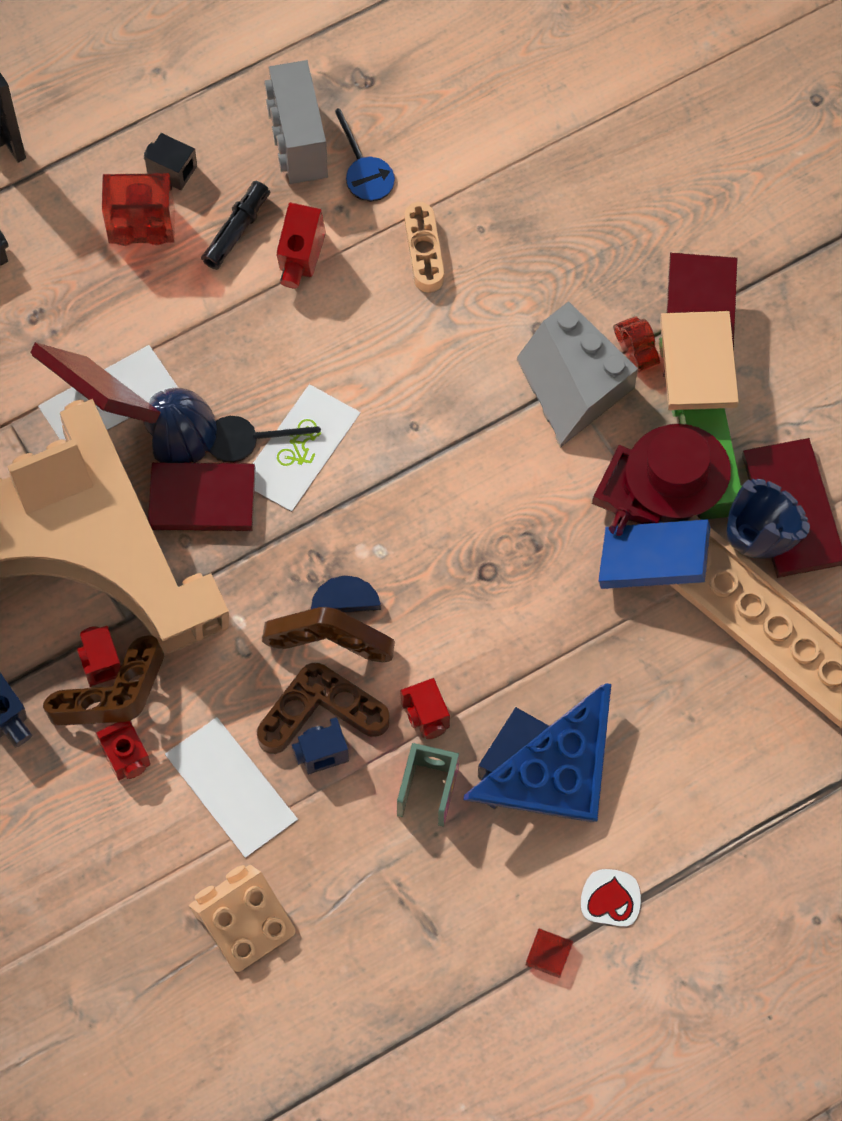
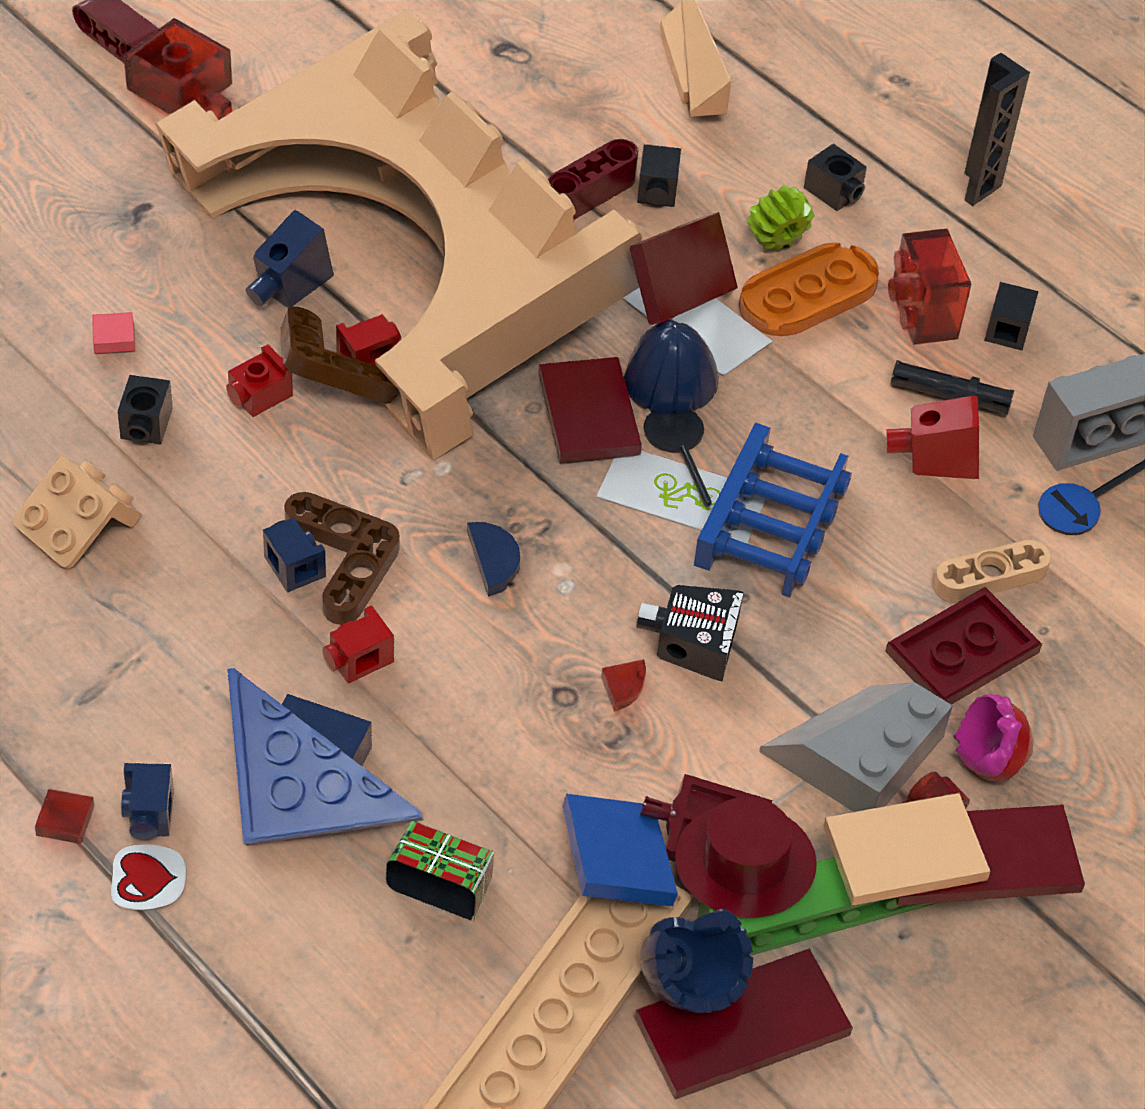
camera: 75 degrees right, 15 degrees down
(28, 301) = (780, 217): none -> lime gear
(31, 868) = (113, 332): none -> coral tile
(99, 303) = (808, 289): none -> orange tile
(133, 833) = (145, 409): none -> black brick
(231, 787) = (236, 490): white sticker -> none
(332, 625) = (431, 542): reddish brown beam -> none
(338, 413) = (745, 482): none -> blue fence
(420, 756) = (260, 636): sand green piece -> none
(451, 462) = (695, 627): none -> torso
(486, 526) = (624, 683): none -> clear red tile
(491, 286) = (964, 647): none -> dark red tile
(553, 885) = (148, 799): none -> dark blue brick
(591, 284) = (994, 738): none -> dark pink hair
(647, 681) = (440, 870): none -> piece

